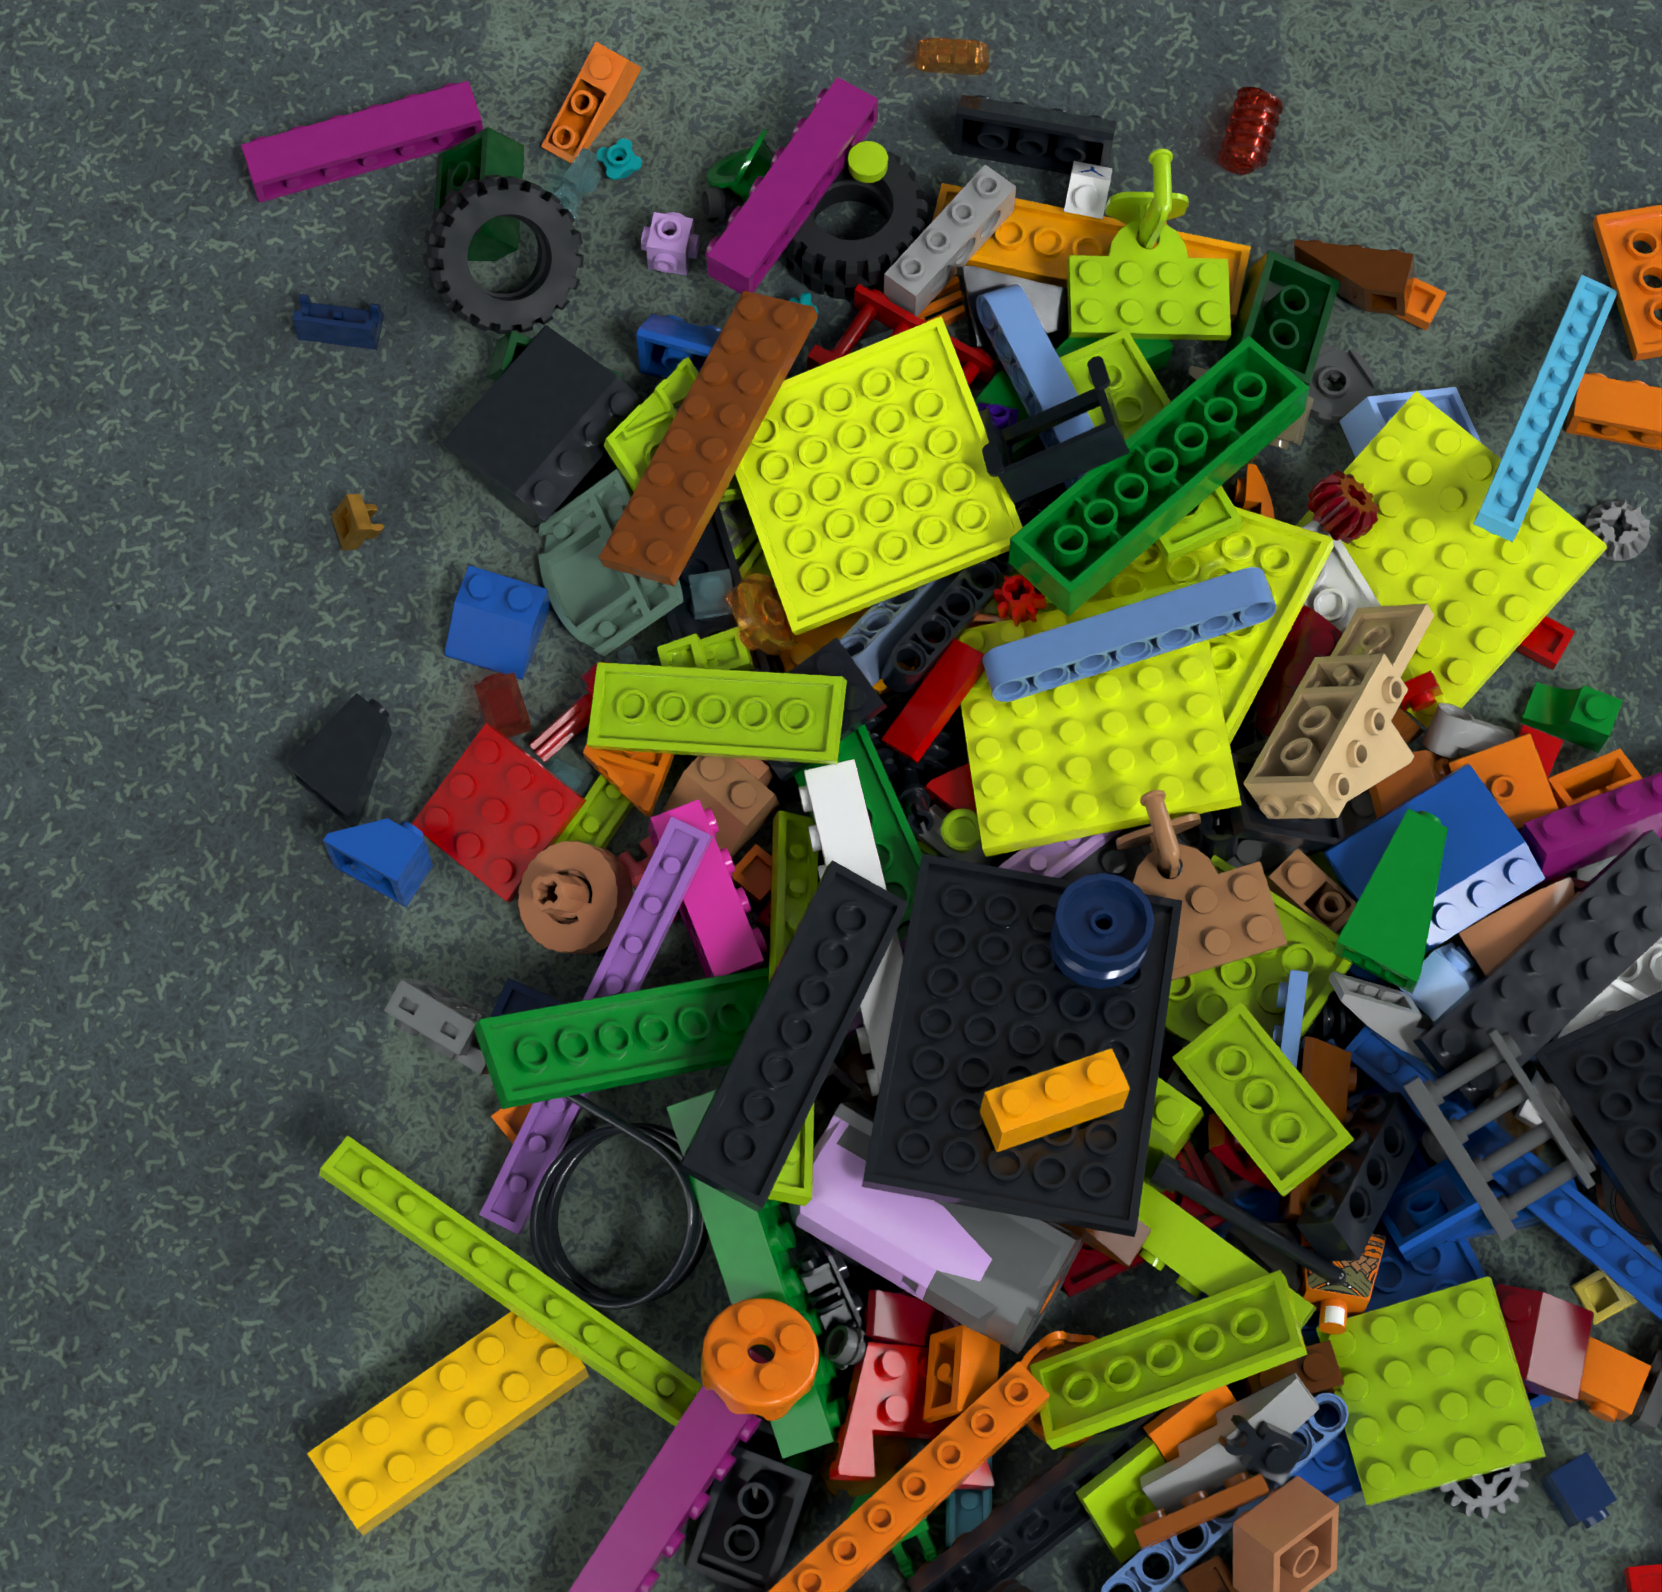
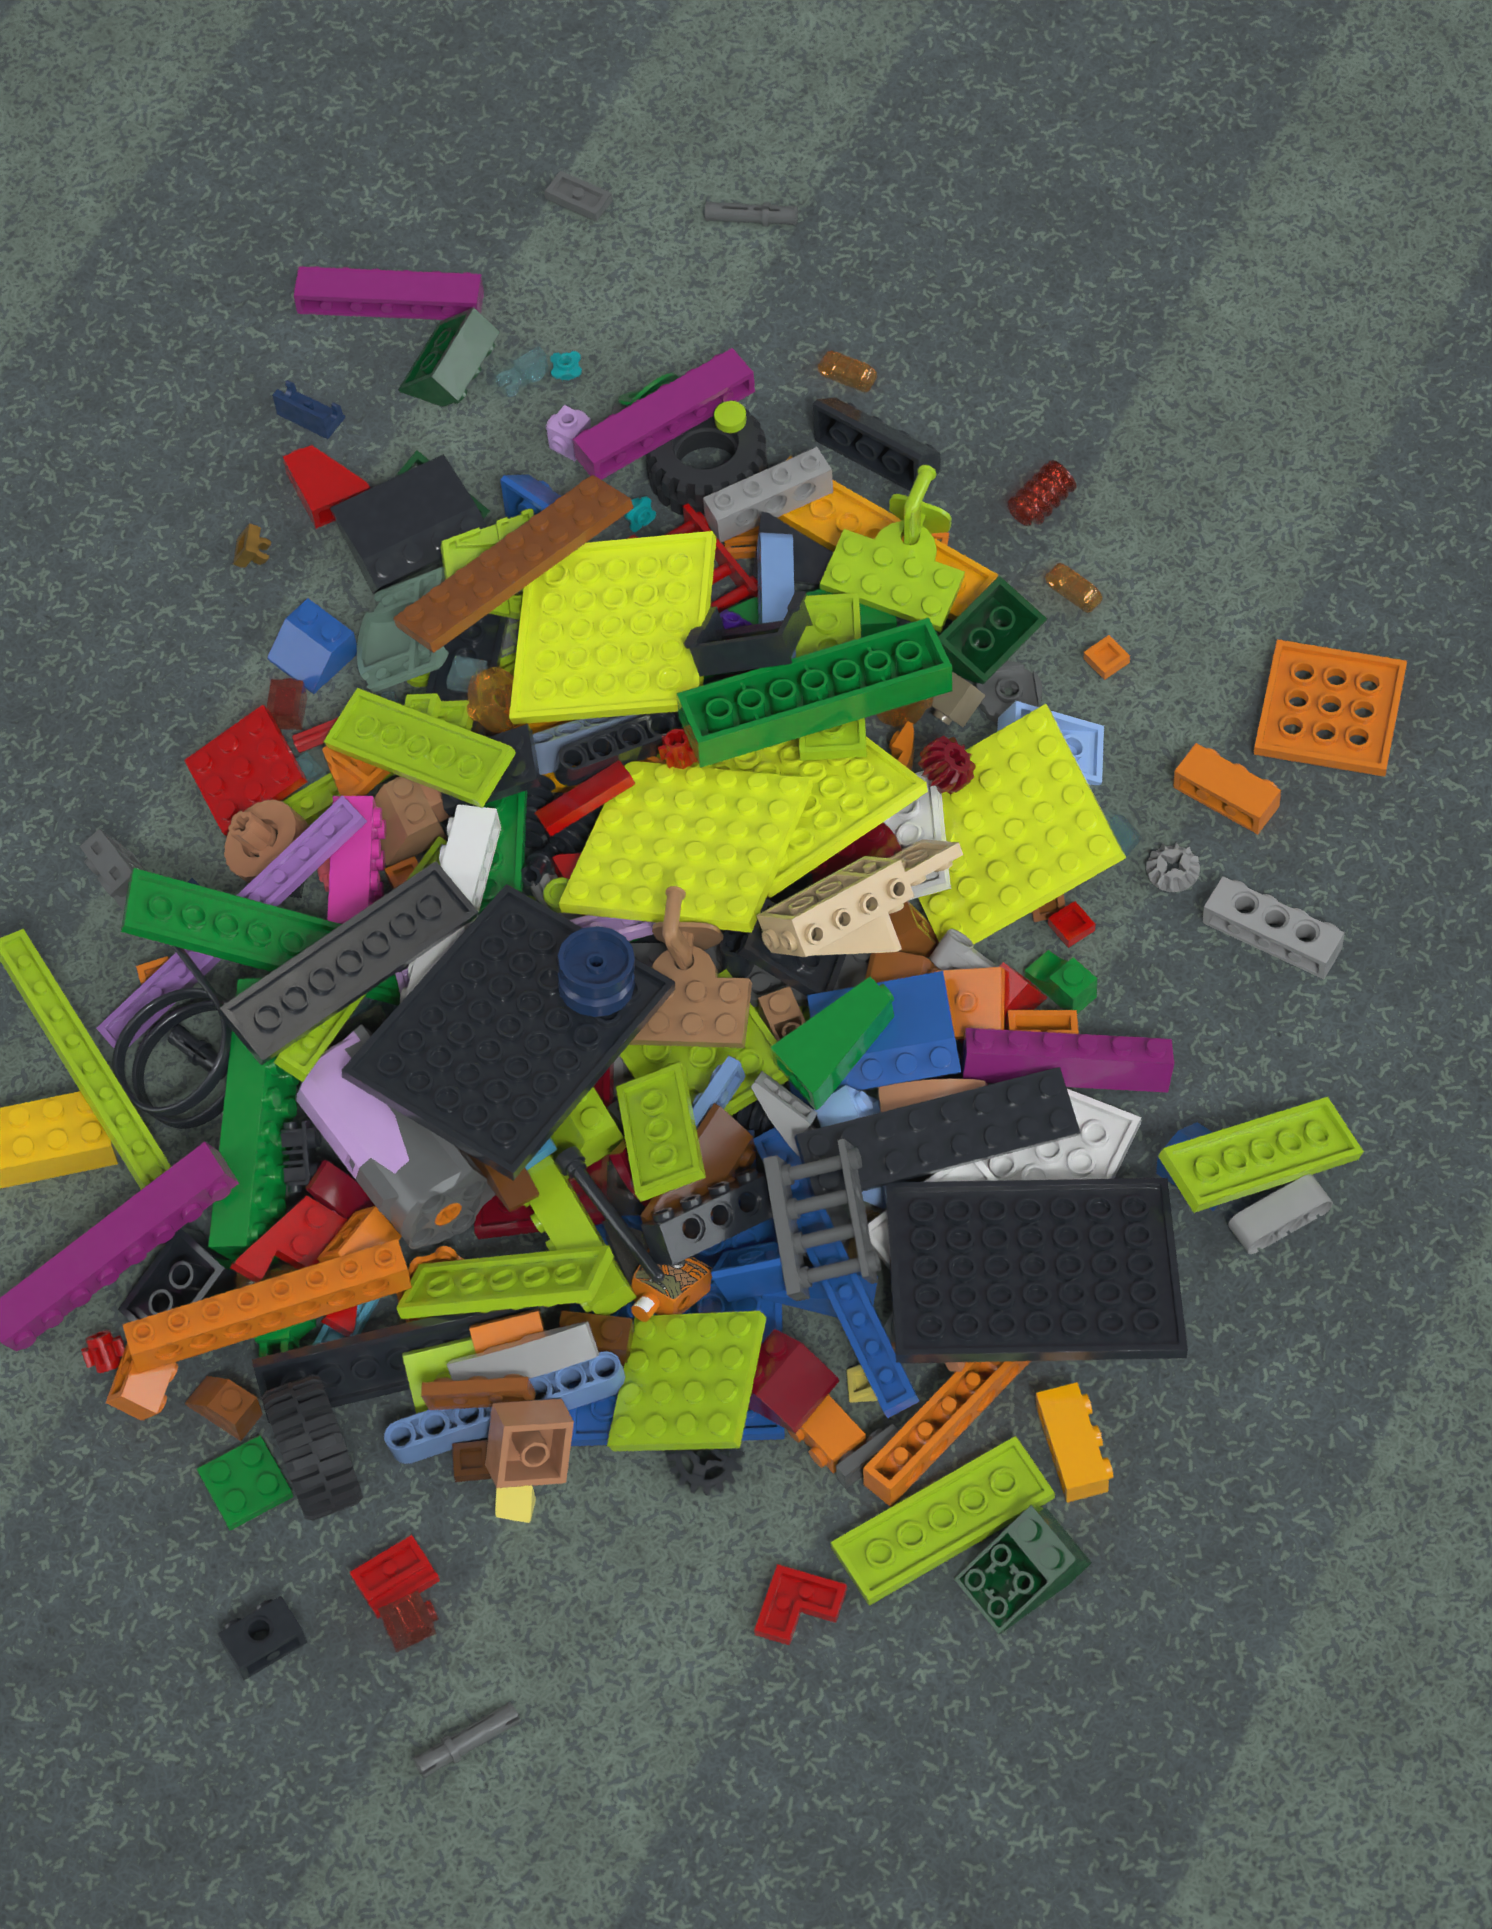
camera: 30 degrees right, 10 degrees down
(345, 758) = (161, 699): black slope -> none
(382, 856) = (149, 769): blue slope -> none
(406, 411) = (321, 482): none -> red slope
(555, 264) = (393, 395): black tyre -> none
(591, 102) = (567, 317): orange slope -> none
(620, 1195) = (189, 1044): none -> black pin
(752, 1386) = (210, 1177): orange plate -> none
(845, 1346) = (289, 1192): dark grey plate -> none
(1054, 1100) = (498, 1064): light orange brick -> none
(1088, 189) = (886, 486): white brick -> none
(1129, 634) = (735, 792): medium blue beam -> none
(1264, 1451) = (544, 1368): black plate -> none
(1339, 229) = (1074, 587): none -> clear orange beam
(1367, 276) = (1072, 623): reddish brown slope -> none
(1421, 692) = (939, 913): red plate -> none
(1545, 409) = (1140, 748): medium azure plate -> none
(1579, 1491) = (770, 1501): dark blue brick -> none

